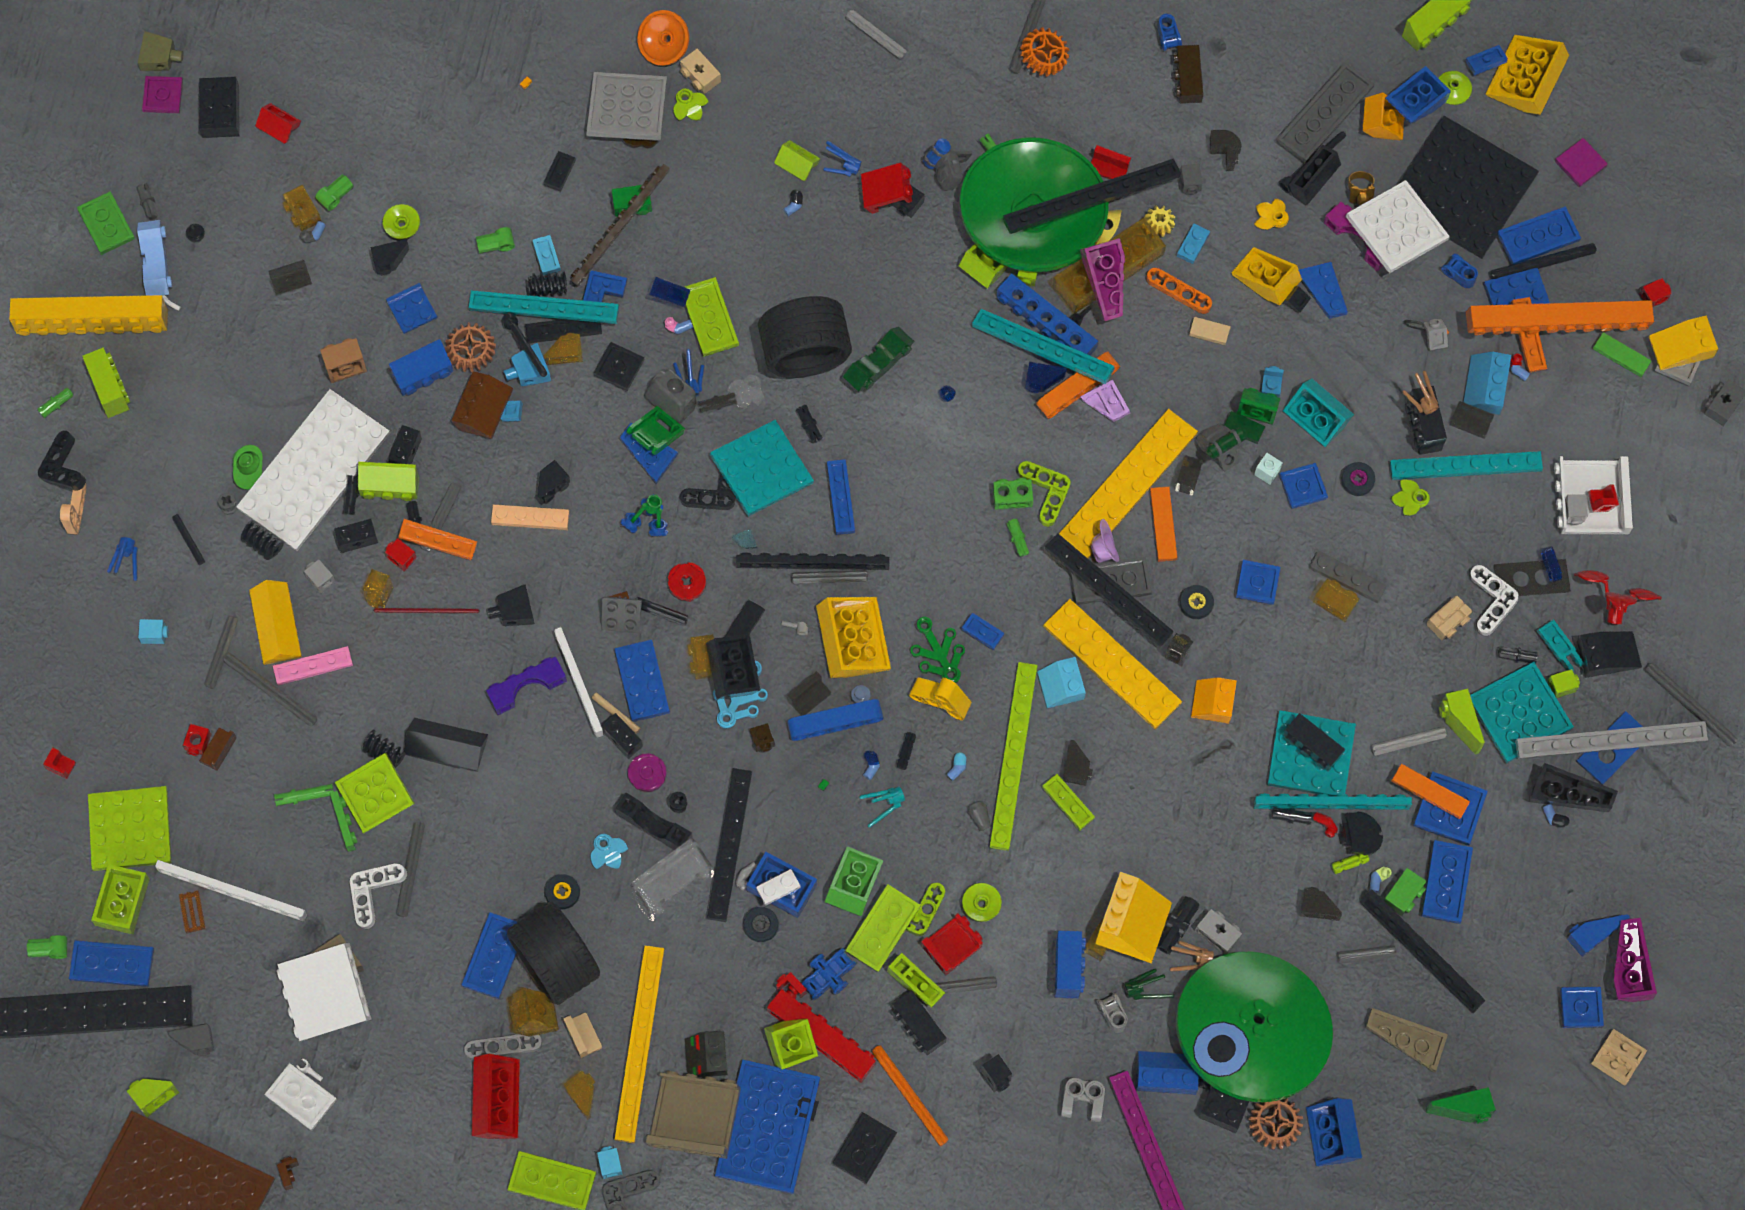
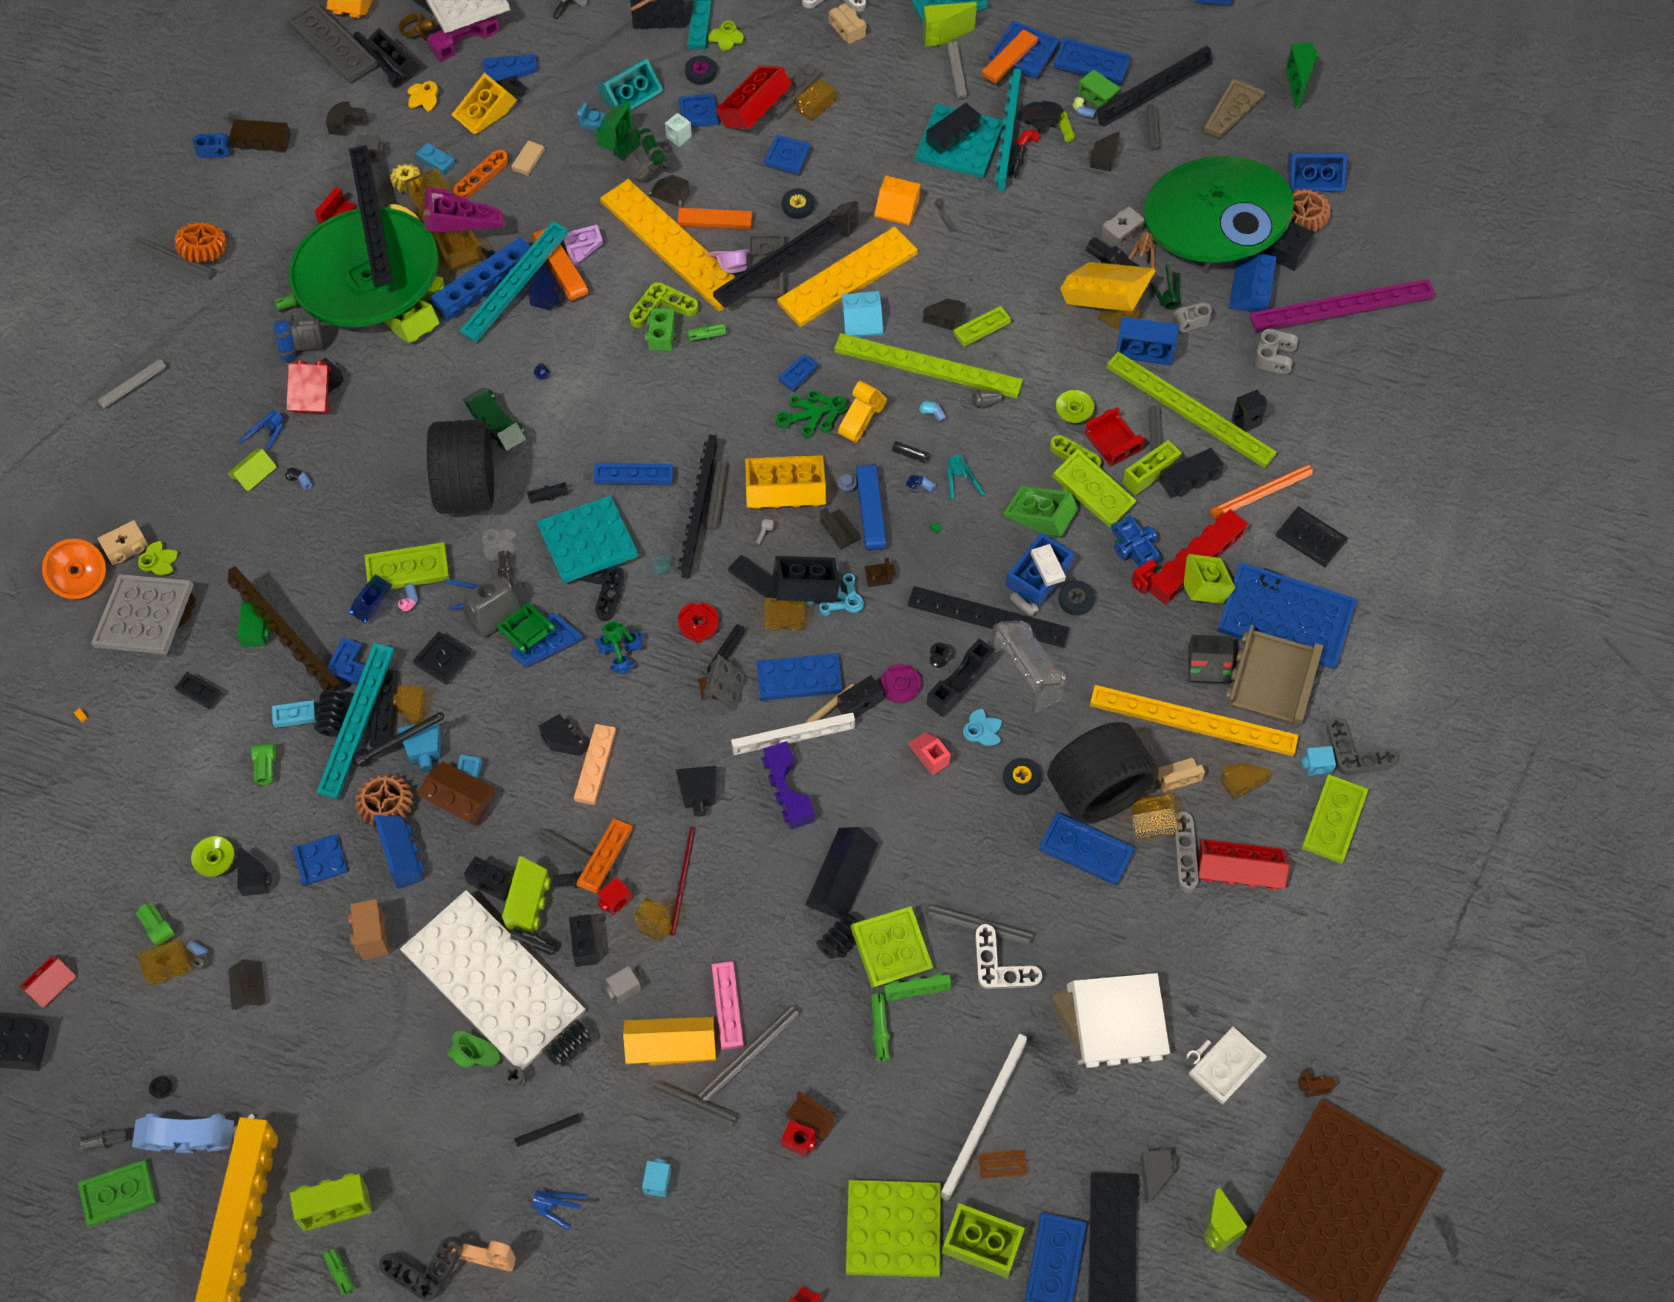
camera: 80 degrees left, 10 degrees down
(574, 804) = (930, 752): none -> coral slope
(997, 1018) = (1191, 410): none -> lime plate
(1320, 535) = (753, 97): none -> red brick

